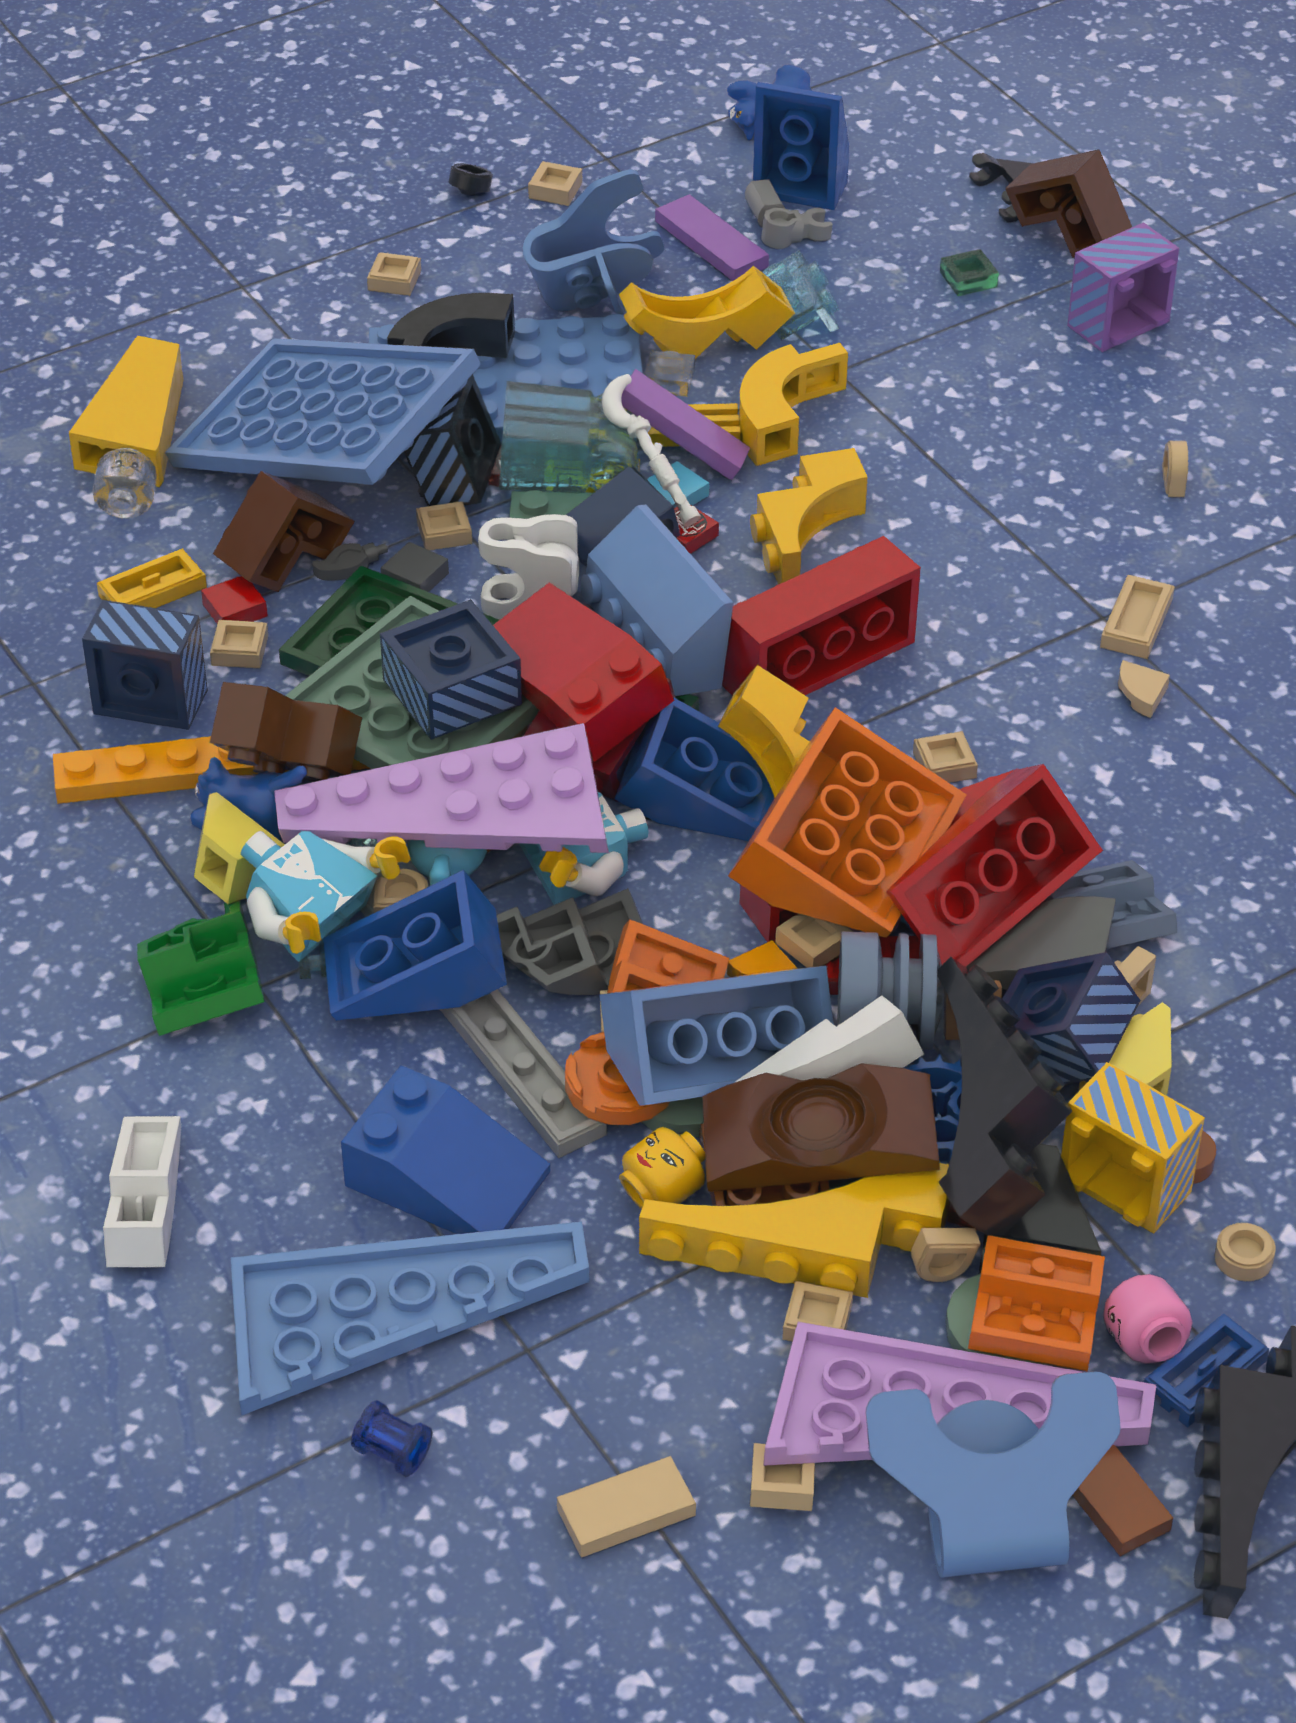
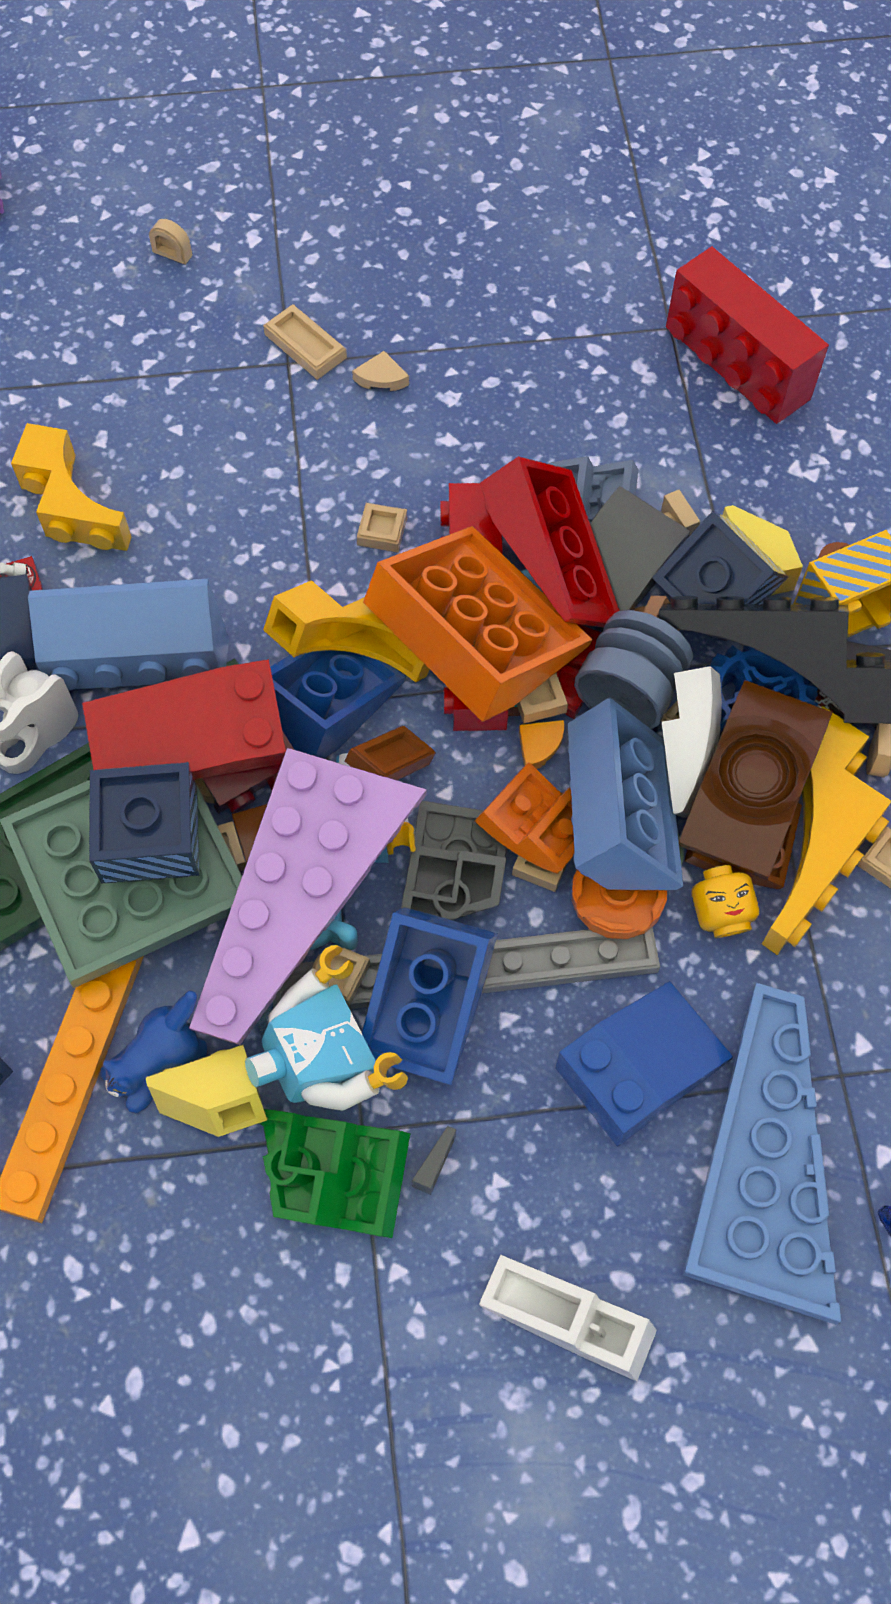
camera: 65 degrees left, 20 degrees up
(252, 1040) = (431, 1168): none -> dark grey piece
(283, 733) = (126, 986): reddish brown brick -> none
(660, 845) = (391, 754): none -> dark orange tile
(827, 619) = (216, 530): red brick -> none

